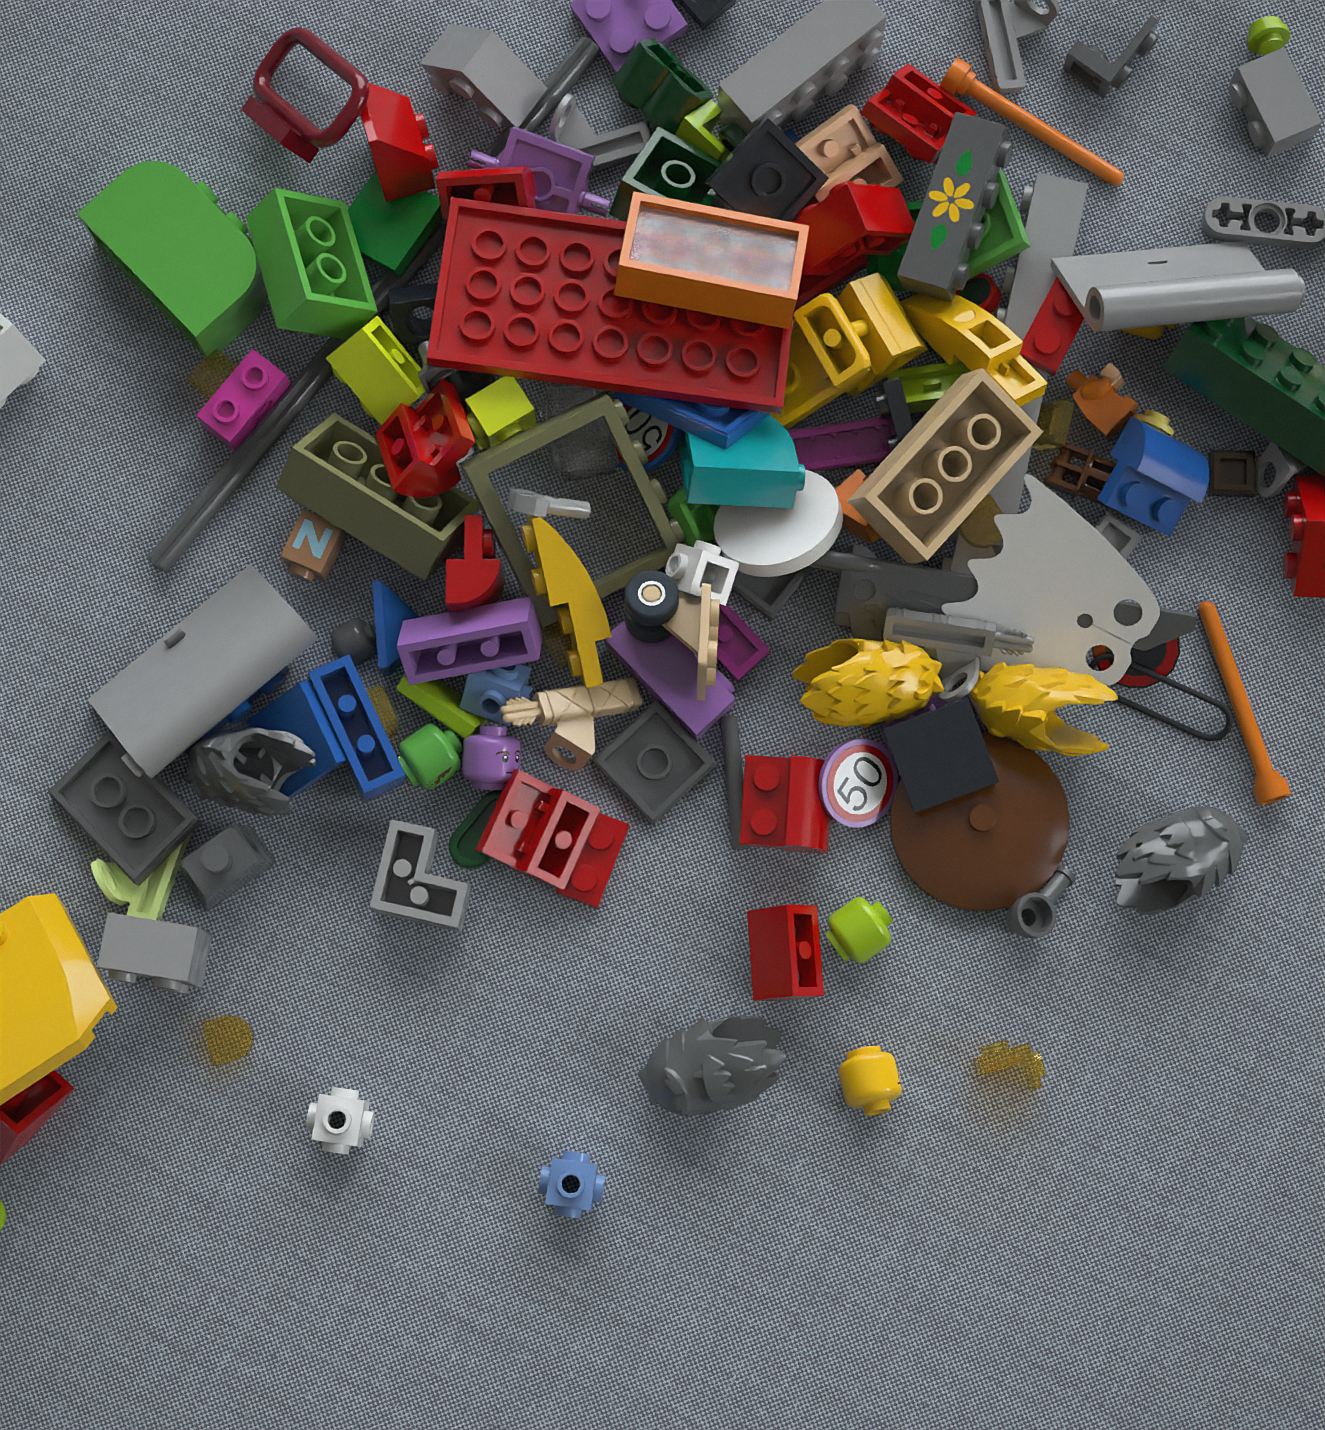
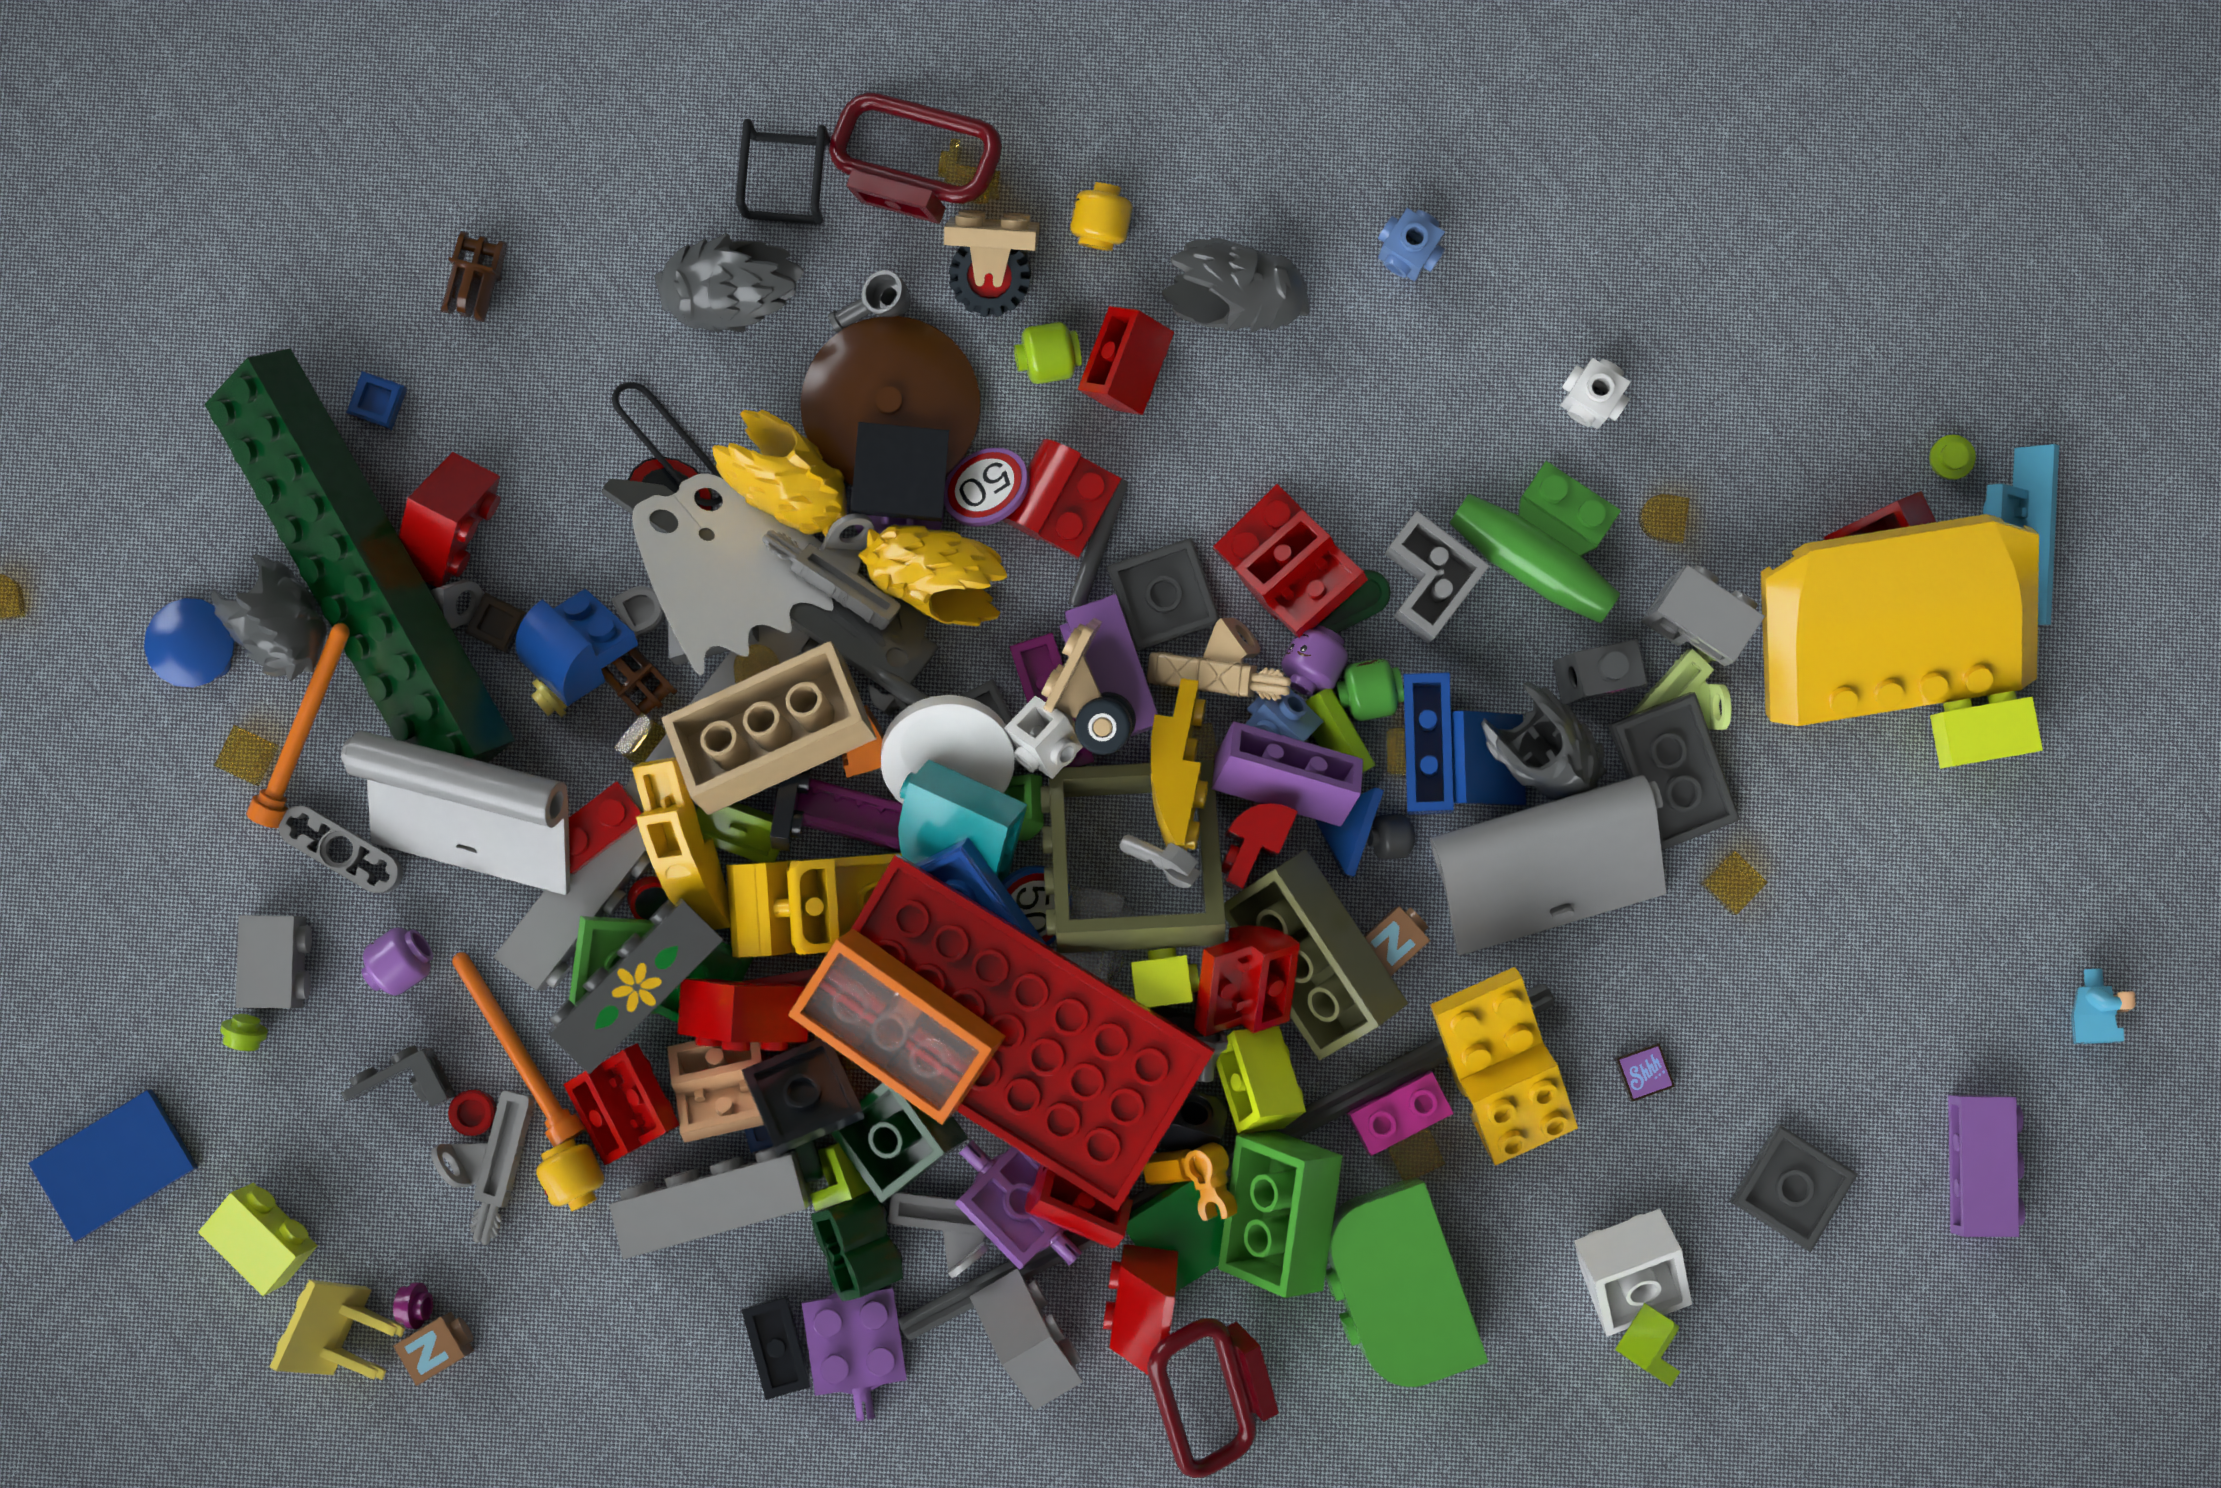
camera: 160 degrees left, 5 degrees up
(30, 735) = (1734, 883): none -> clear yellow tile
(43, 535) = (1644, 1072): none -> tile
(168, 473) = (1503, 1066): none -> yellow piece
(328, 961) = (1546, 540): none -> bright green plate
(391, 272) = (1202, 1165): none -> light orange bar
(933, 40) = (570, 1175): none -> yellow head
(953, 993) = (990, 265): none -> plate
(1042, 59) = (472, 1112): none -> red tile
(1063, 1020) = (905, 191): none -> dark red bar
(1100, 401) = (587, 742): orange piece -> none
(1164, 1036) = (820, 141): none -> black piece
(1169, 149) = (396, 961): none -> medium lavender head
(1268, 783) = (609, 317): orange piece -> none

